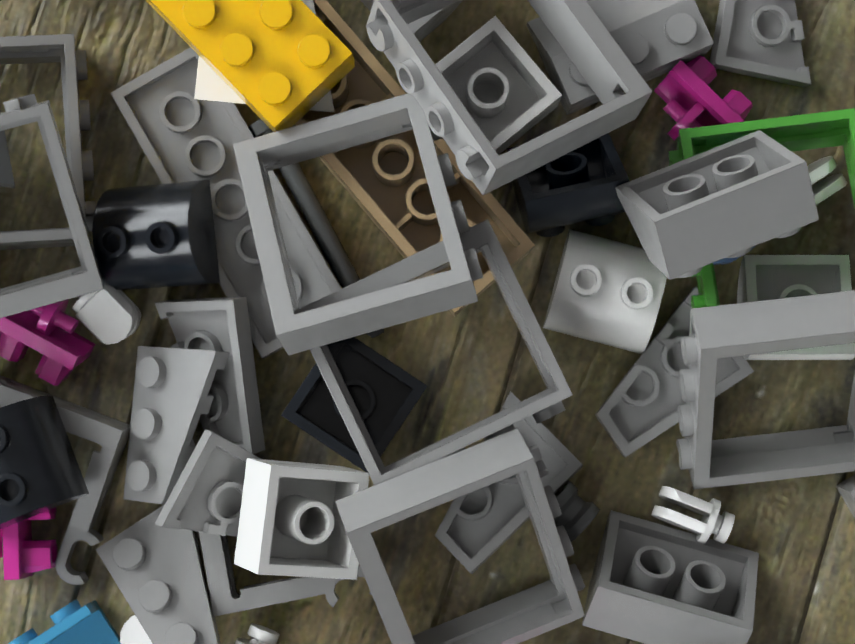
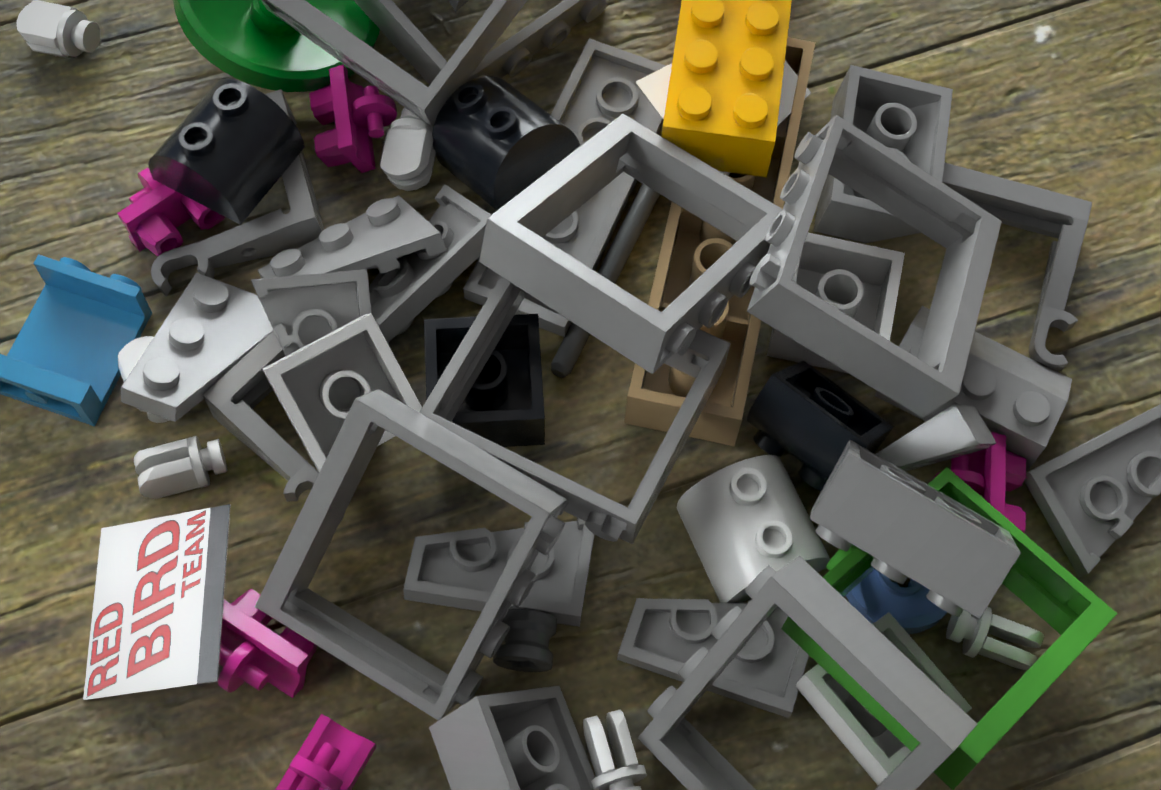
camera: 50 degrees right, 20 degrees down
(654, 119) = (943, 437): none -> light grey slope

